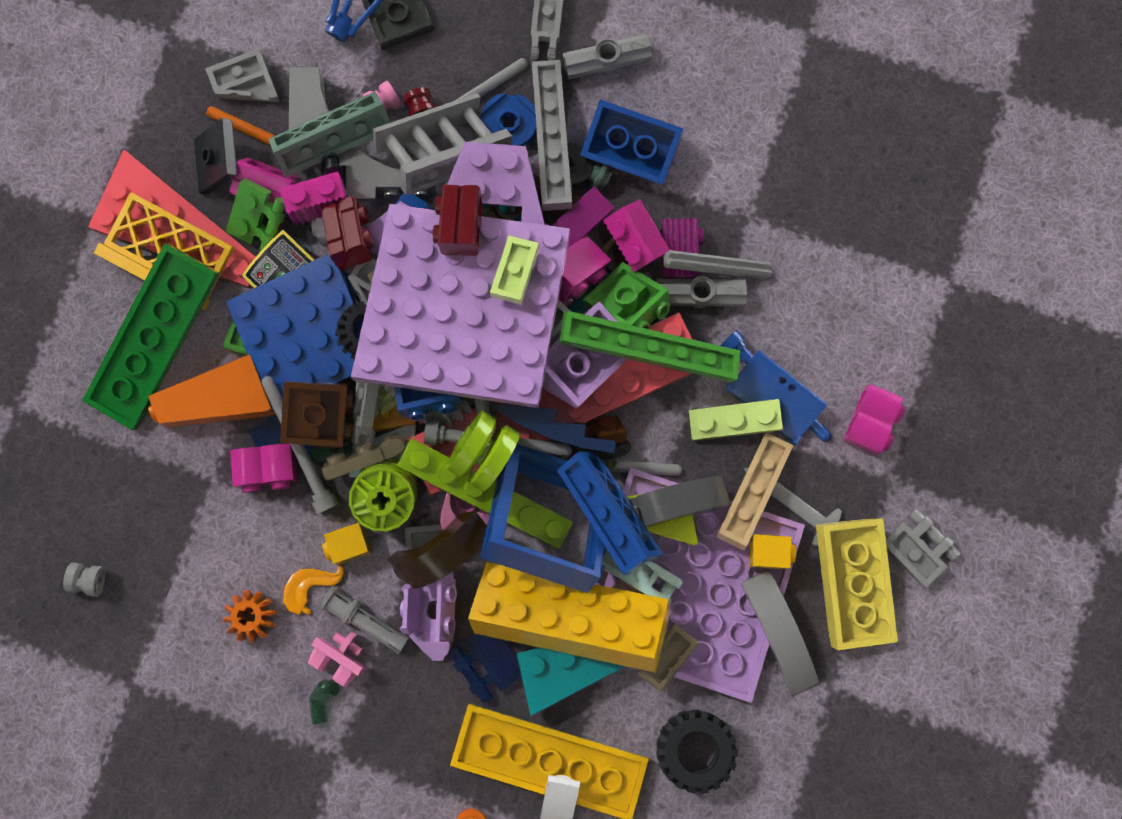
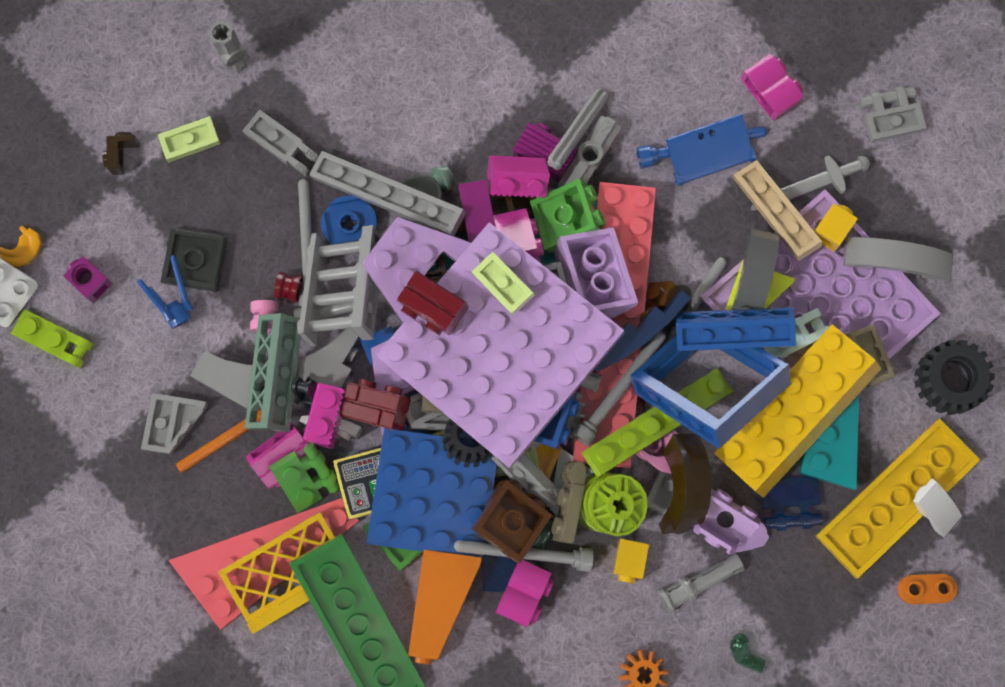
camera: 60 degrees left, 0 degrees up
(215, 156) = (229, 483): black plate -> none
(298, 585) = (638, 619): light orange piece -> none
(325, 651) = (708, 627): bright pink hips -> none
(486, 453) = (630, 398): lime wheel -> none
(624, 53) = (347, 96): light grey piece -> none
(632, 142) = (433, 135): blue slope -> none
(649, 346) = (620, 219): bright green plate -> none
(736, 420) = (710, 191): yellowish green plate -> none
(856, 583) = (893, 178): light yellow slope -> none

